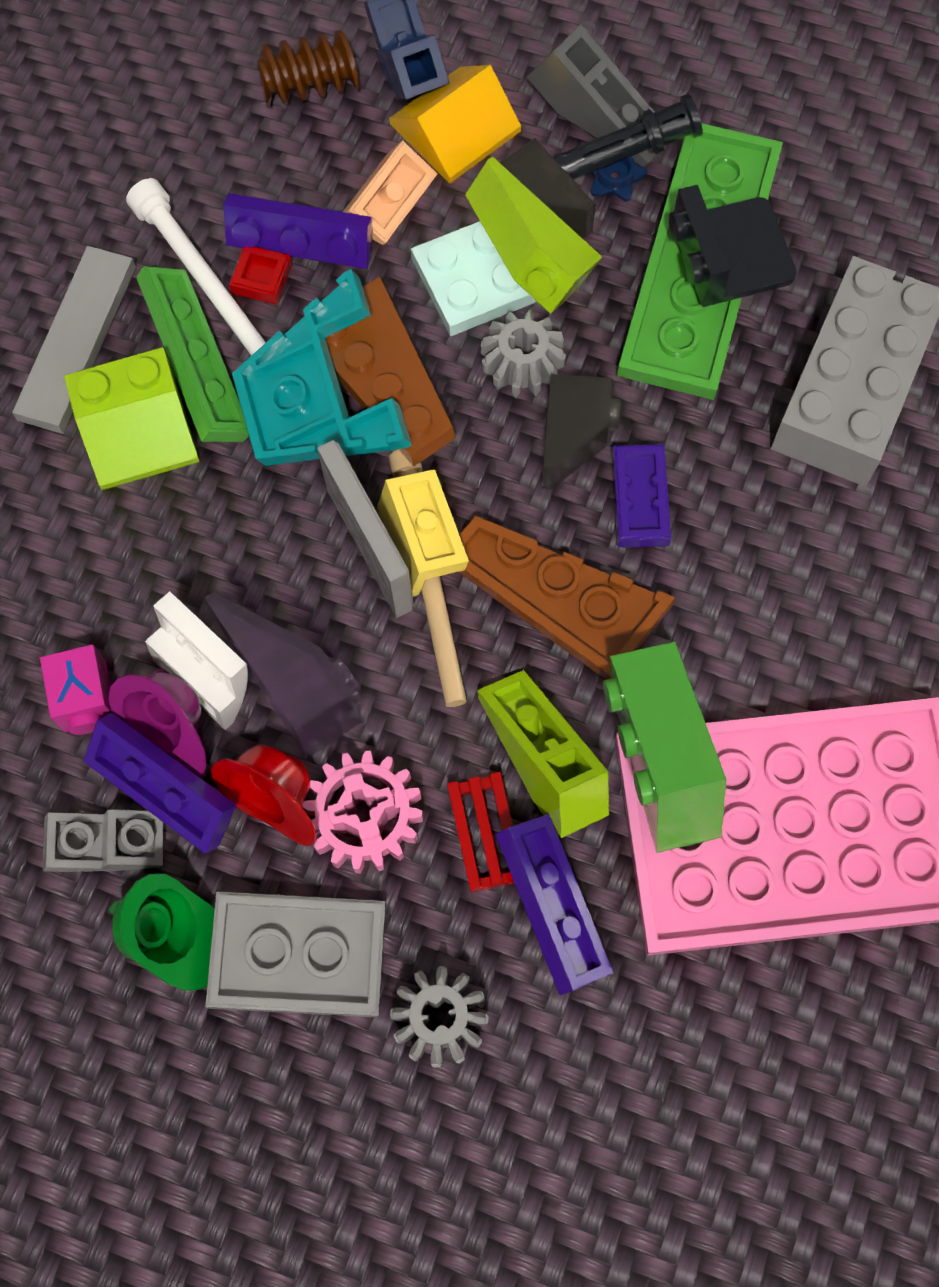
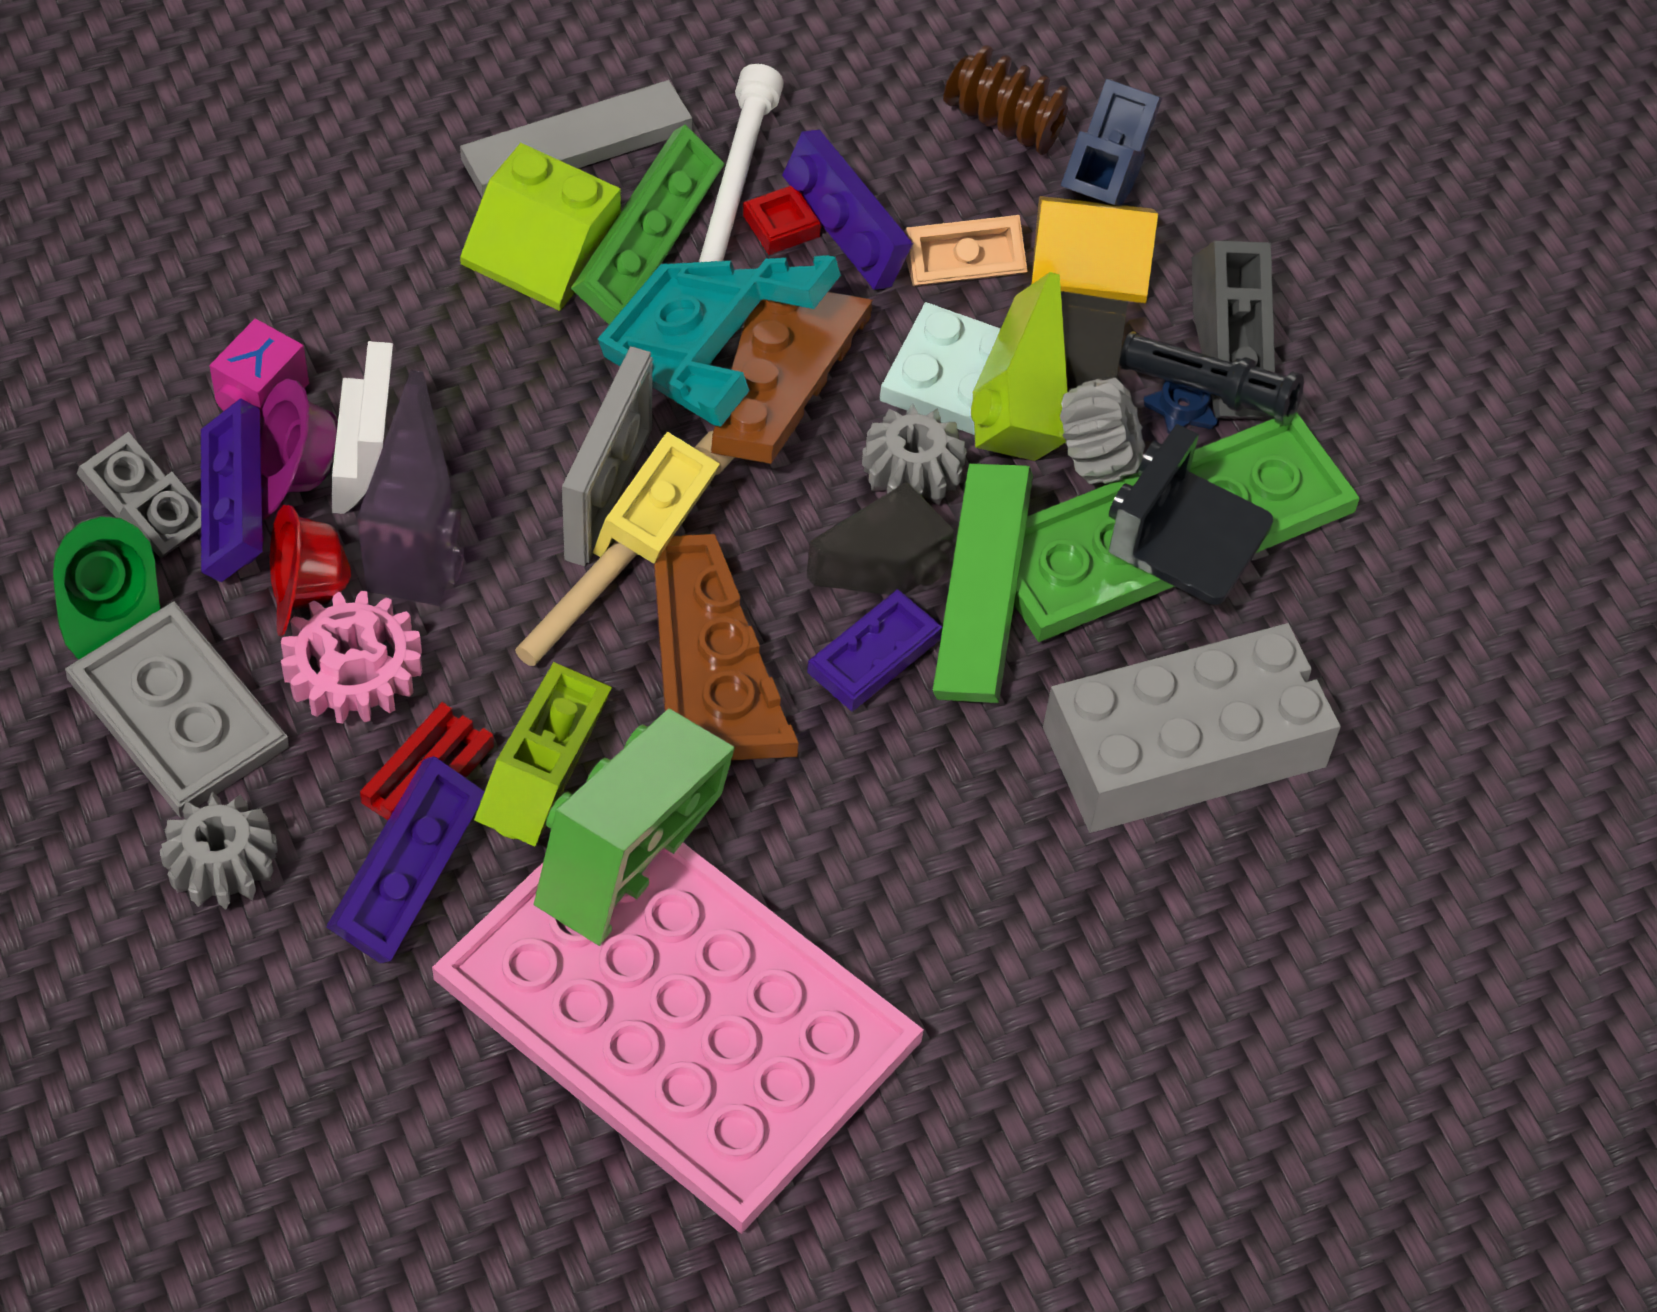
camera: 40 degrees right, 15 degrees down
(618, 234) = (1102, 431): none -> light grey gear
(657, 393) = (983, 583): none -> bright green tile

